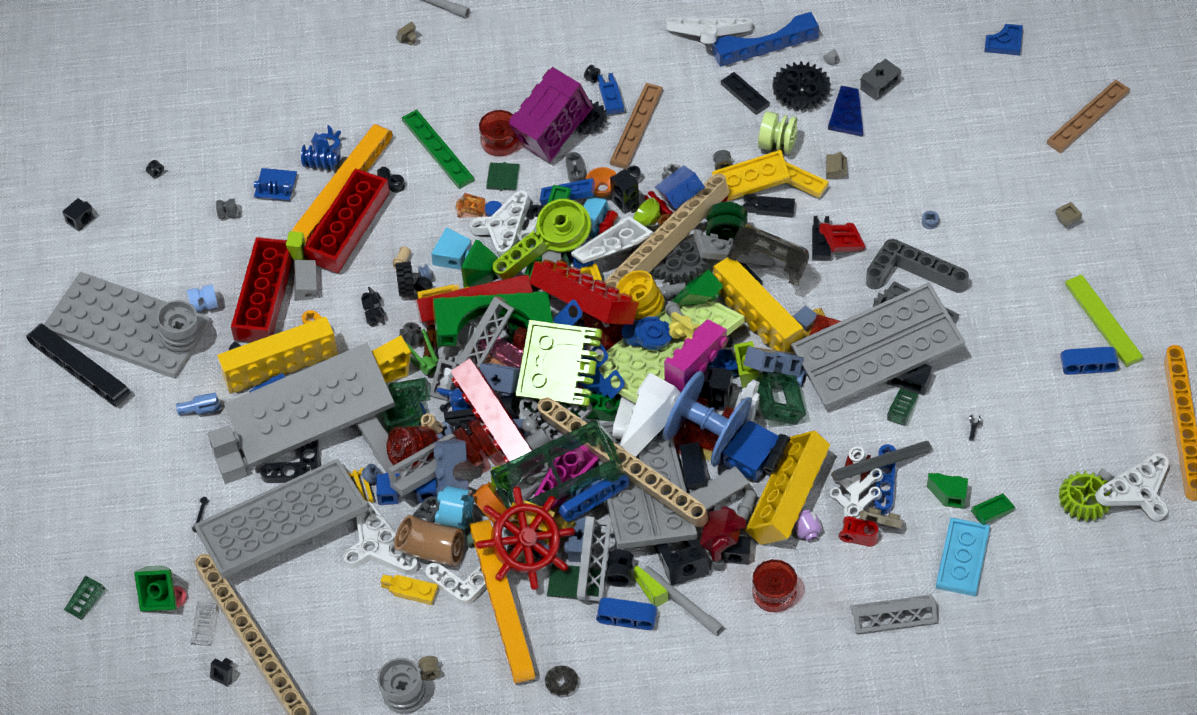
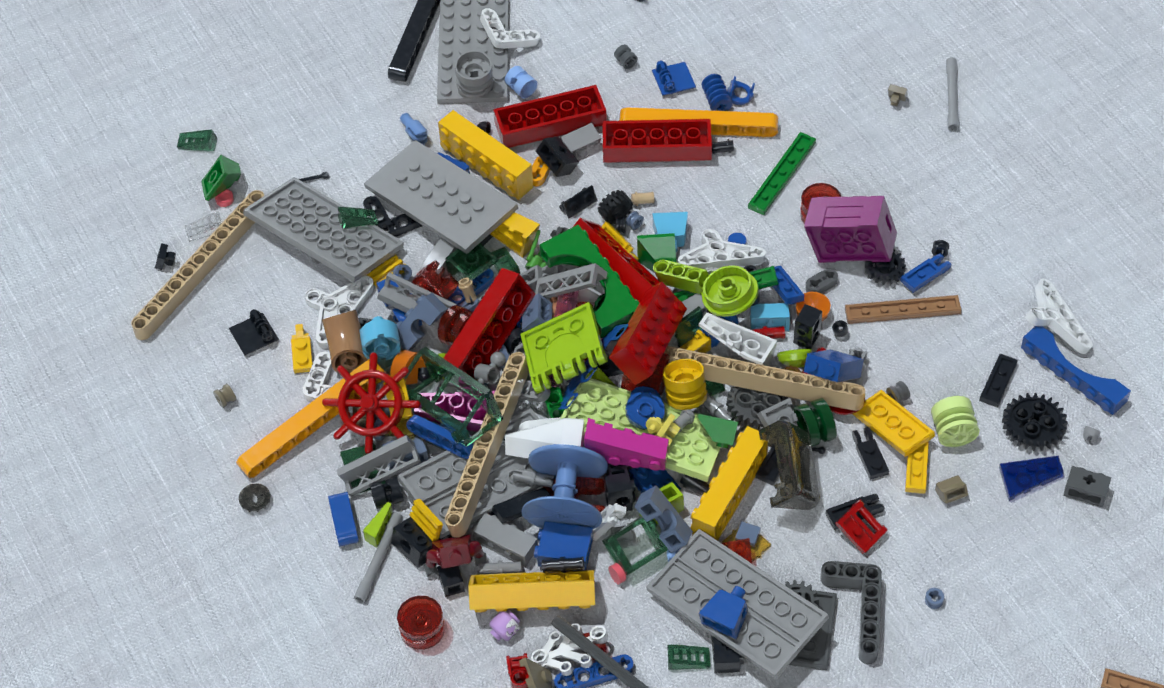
camera: 65 degrees right, 0 degrees up
(134, 293) = (526, 37): none -> white beam
(227, 453) = (372, 159): light grey brick -> none
(286, 485) = (356, 217): none -> clear green slope
(295, 245) = (601, 112): lime slope -> none
(316, 301) = (557, 156): none -> black brick
(365, 622) = (253, 333): none -> black hinge
(396, 188) = (724, 155): black bush -> none
(401, 685) = (193, 380): light grey wheel -> none
(470, 204) = (729, 222): clear orange bracket -> none
(502, 176) = (780, 233): clear green piece -> none
(671, 445) = (533, 477): none -> light grey pin
(677, 541) = (426, 519): none -> yellow tile
(796, 424) = (617, 573): none -> coral tile
(891, 350) = (725, 612): none -> blue torso

